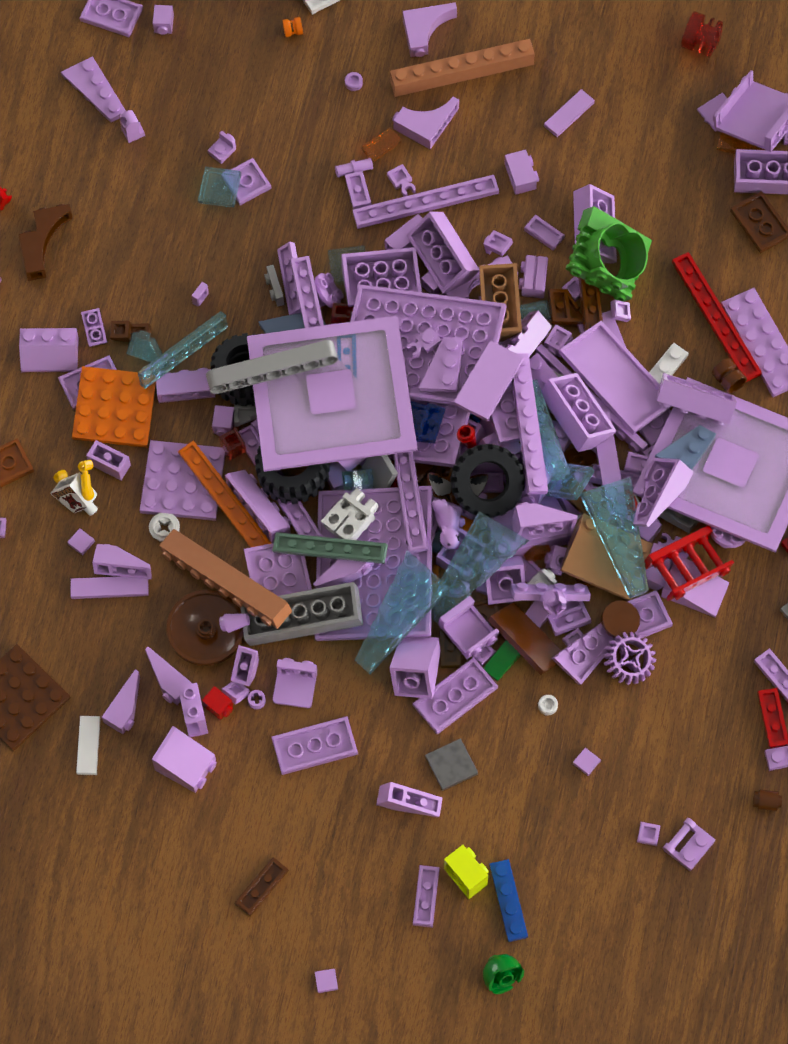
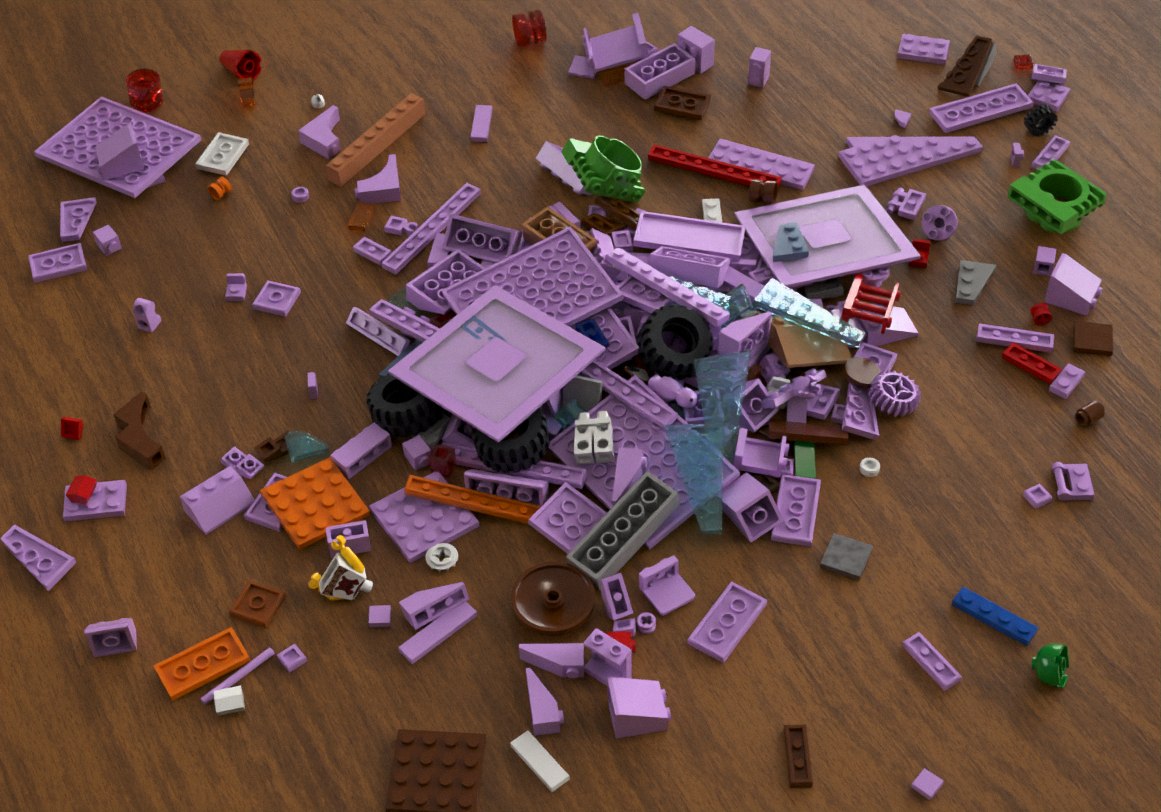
camera: 40 degrees left, 20 degrees down
(94, 86) = (89, 313): lavender wing -> none
(182, 349) = (337, 425): clear light blue plate -> none
(219, 186) = (258, 311): clear light blue tile -> none
(225, 579) = (536, 547): nougat brick -> none
(232, 622) = (574, 573): lavender cone -> none
(271, 367) = (431, 372): light grey beam -> none
(272, 279) = (368, 343): light grey plate -> none
(330, 547) = (601, 465): sand green tile -> none
(353, 167) = (354, 238): lavender pin -> none
(408, 800) = (841, 602): lavender slope -> none
(426, 341) = (535, 285): lavender plate -> none
(444, 368) = (568, 290): lavender wing -> none
(466, 871) = (946, 613): neon yellow brick -> none
(467, 436) = (630, 321): red cone -> none
(488, 380) = (611, 275): lavender tile -> none
(497, 243) = (514, 216): lavender bracket -> none
(521, 172) = (484, 171): lavender brick -> none
(544, 232) = (538, 196): lavender tile -> none
(586, 761) = (940, 482): lavender tile -> none
(620, 310) = (644, 204): lavender tile -> none
(664, 483) = (802, 267): lavender wedge -> none
(696, 398) = (760, 210): lavender slope -> none

